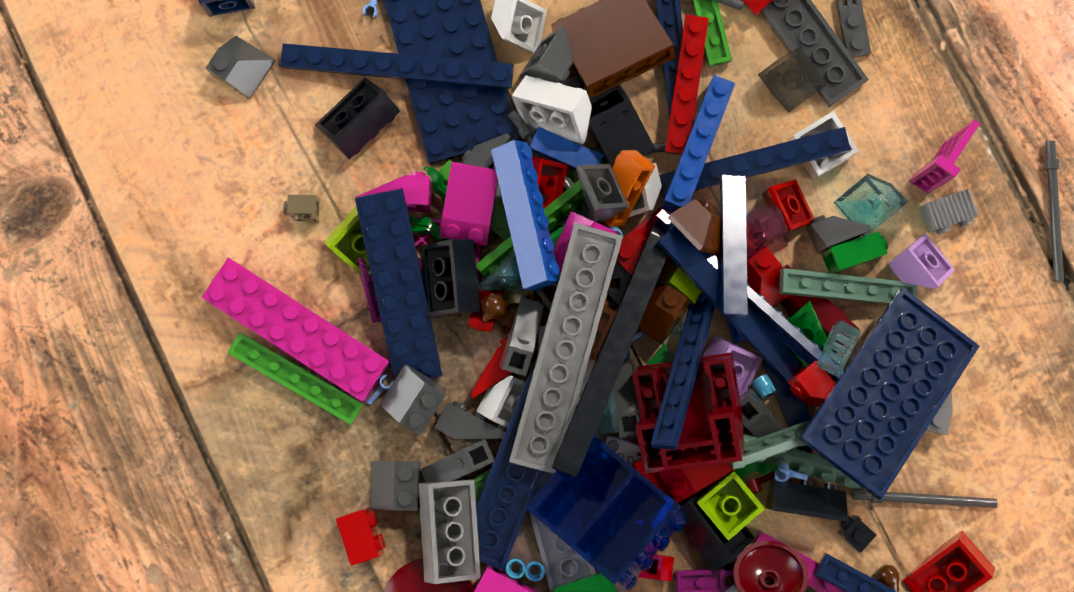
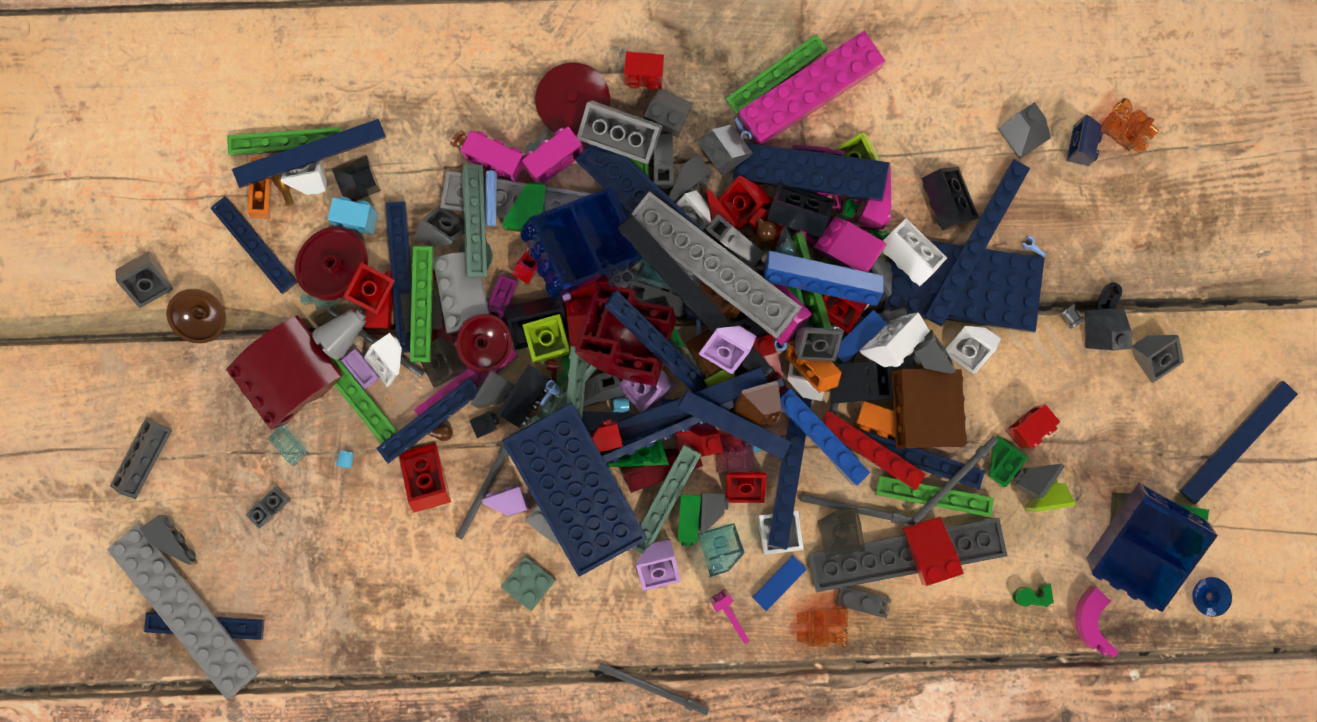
camera: 115 degrees right, 0 degrees up
(302, 207) = (899, 131): dark tan brick -> none
(441, 131) = (913, 252): none -> white slope
(465, 349) = (744, 200): none -> red slope
(512, 574) = (569, 165): medium azure hose -> none
(537, 577) = (564, 177): medium azure hose -> none
(648, 95) = (876, 419): none -> orange brick
(654, 286) = (728, 347): none -> lavender slope
(746, 30) = (895, 517): none -> dark grey bar
(817, 538) = (493, 391): none -> dark grey slope
(846, 335) = (634, 478): clear light blue slope -> none
(876, 124) = (779, 583): none -> blue tile
(899, 63) = (817, 626): none -> clear orange hips
(935, 463) = (509, 502): none -> lavender slope
(949, 211) = (688, 606): light grey brick -> none
(1008, 400) = (528, 583): none -> sand green plate

